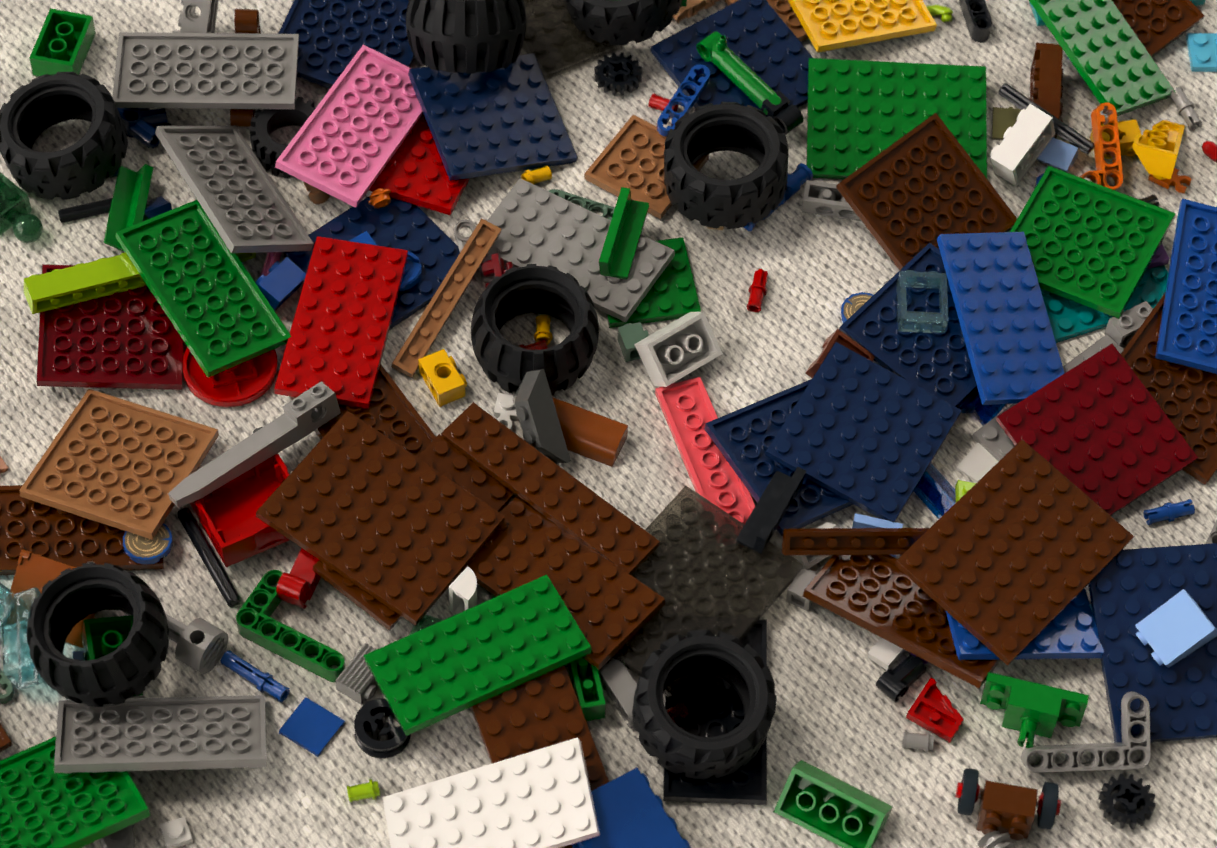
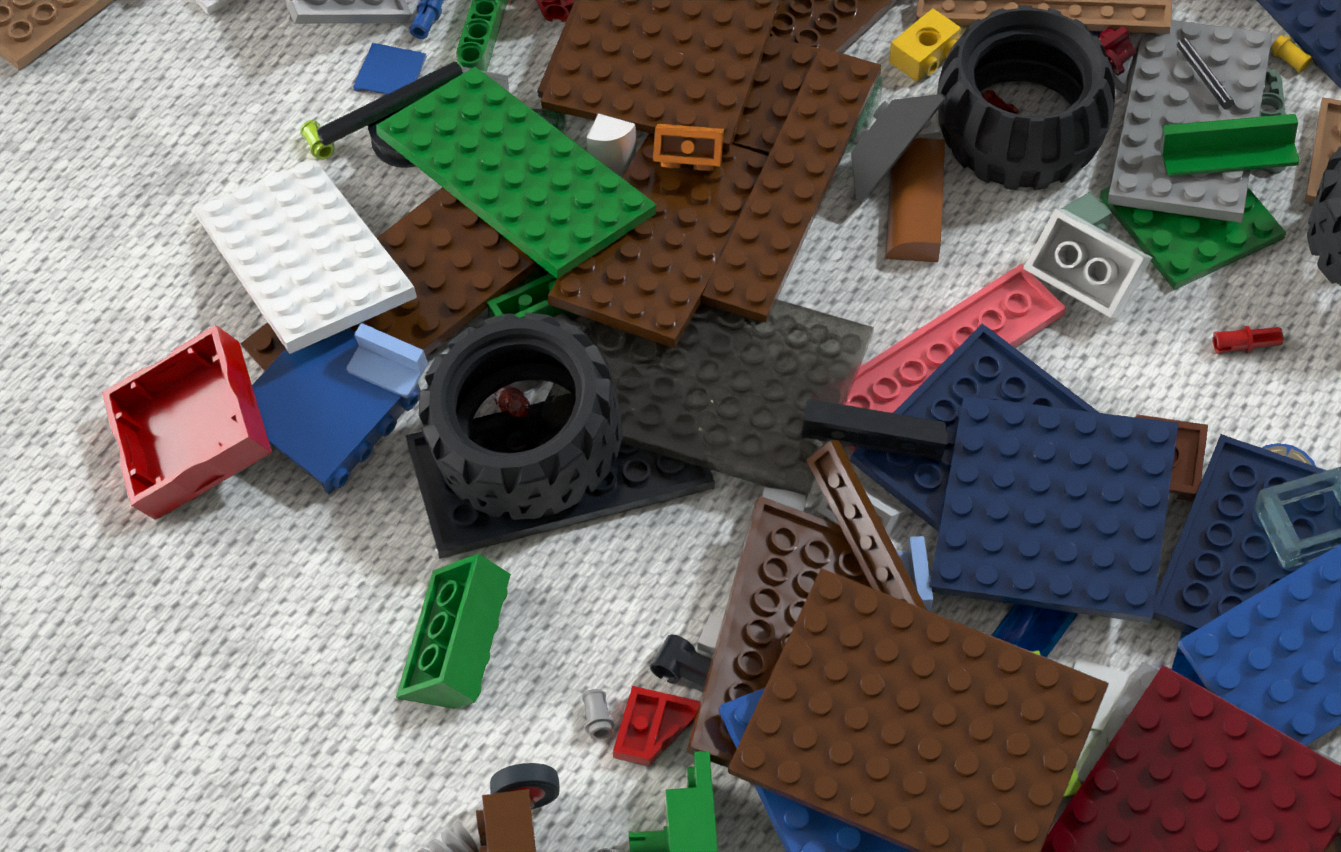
camera: 75 degrees right, 0 degrees up
(366, 725) = (387, 104): none -> black axle
(503, 538) = (688, 145): none -> orange brick
(547, 226) = (1205, 73): none -> black bar
(622, 779) = (387, 361): none -> light blue panel

